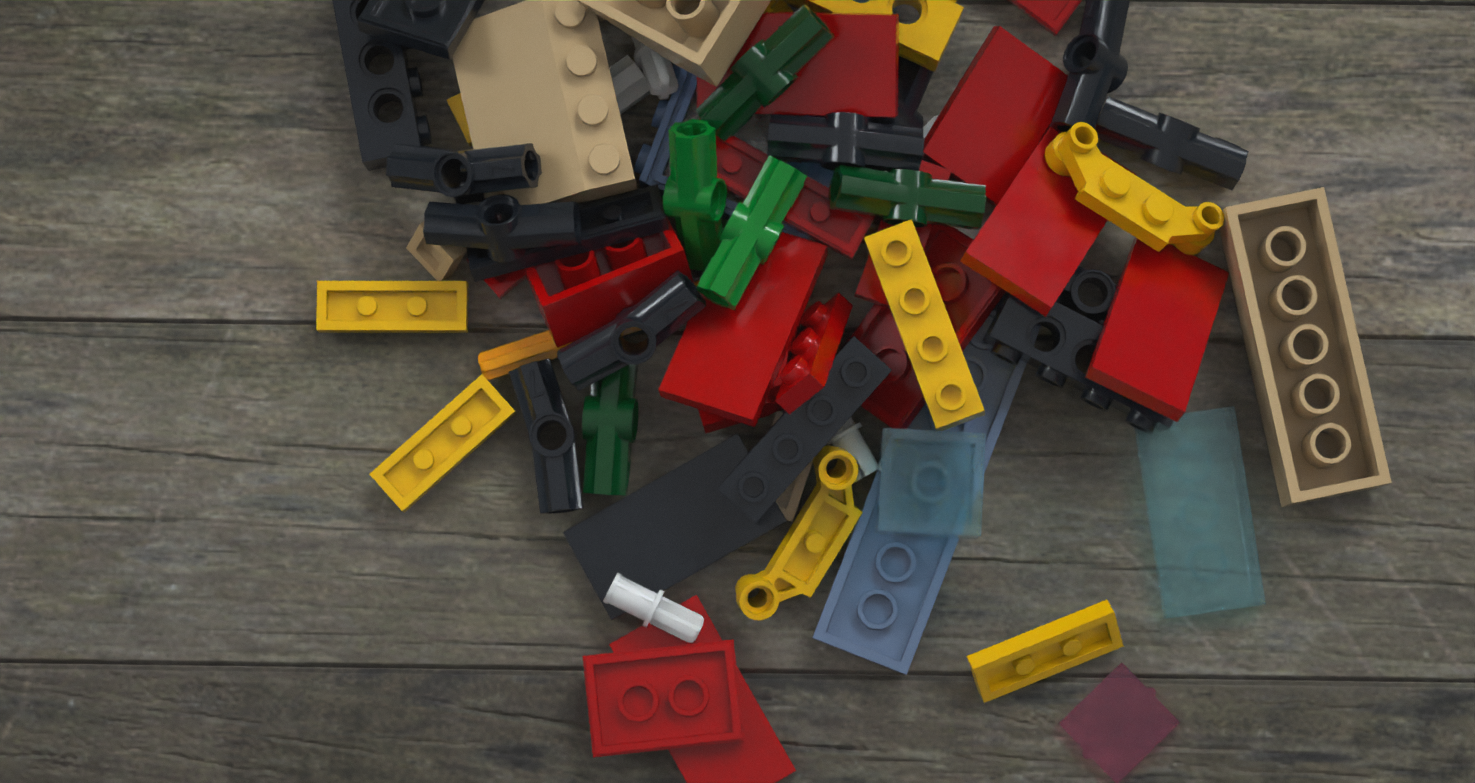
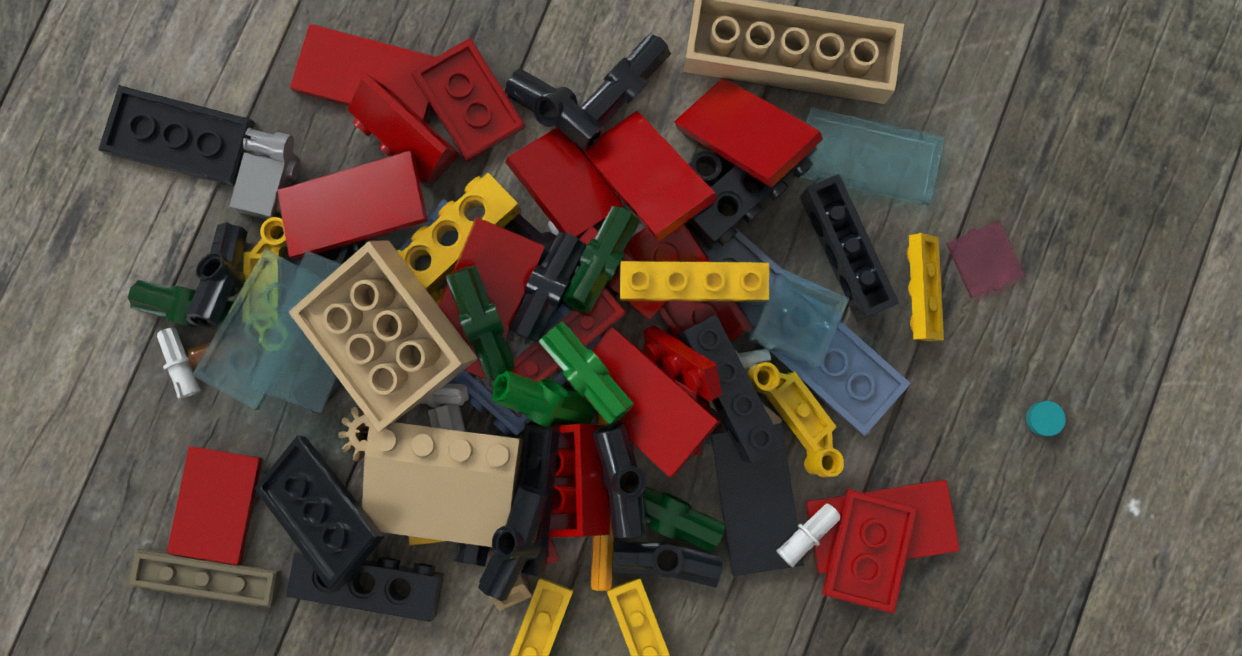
camera: 75 degrees left, 0 degrees up
(487, 168) = (471, 539): black piece -> none
(1056, 522) = (848, 248): none -> black brick
(1129, 199) = (653, 119): yellow plate -> none

